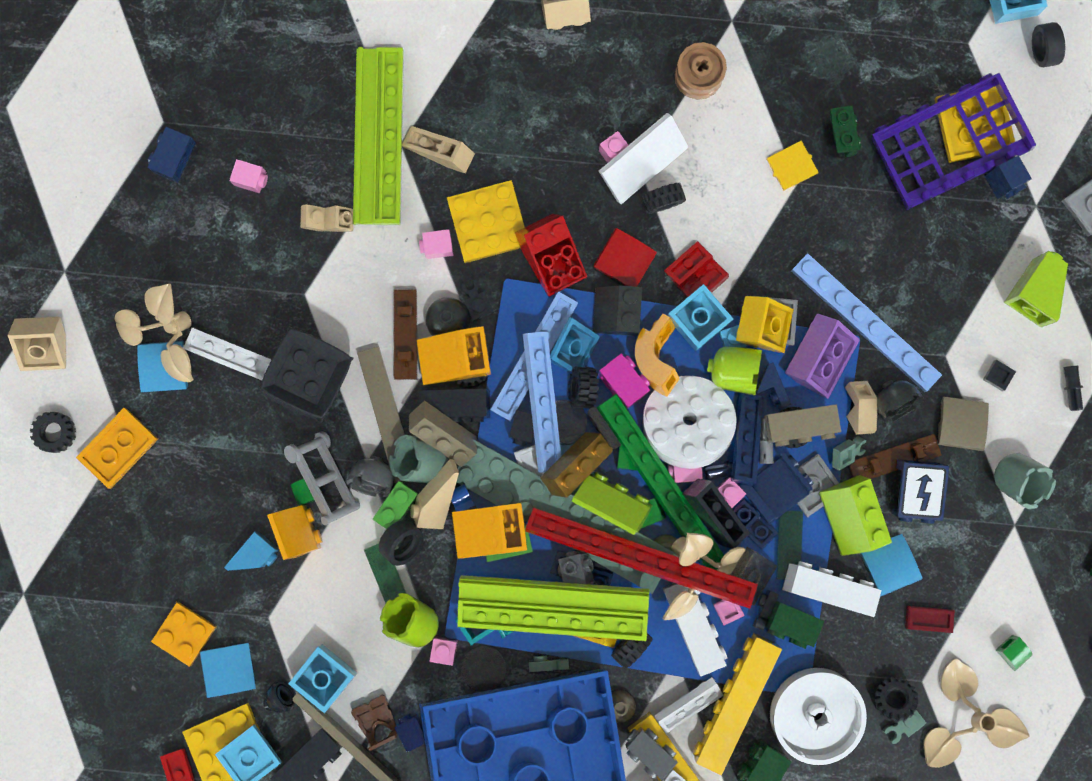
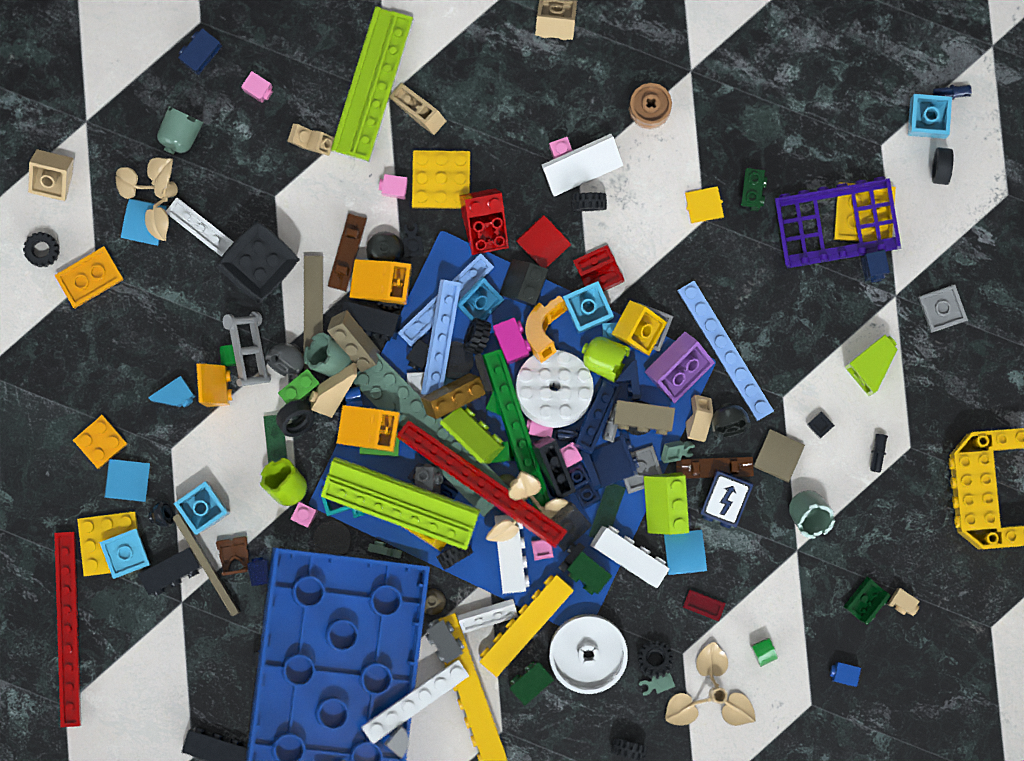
camera: 20 degrees right, 0 degrees up
(171, 251) = (178, 131): none -> sand green cylinder

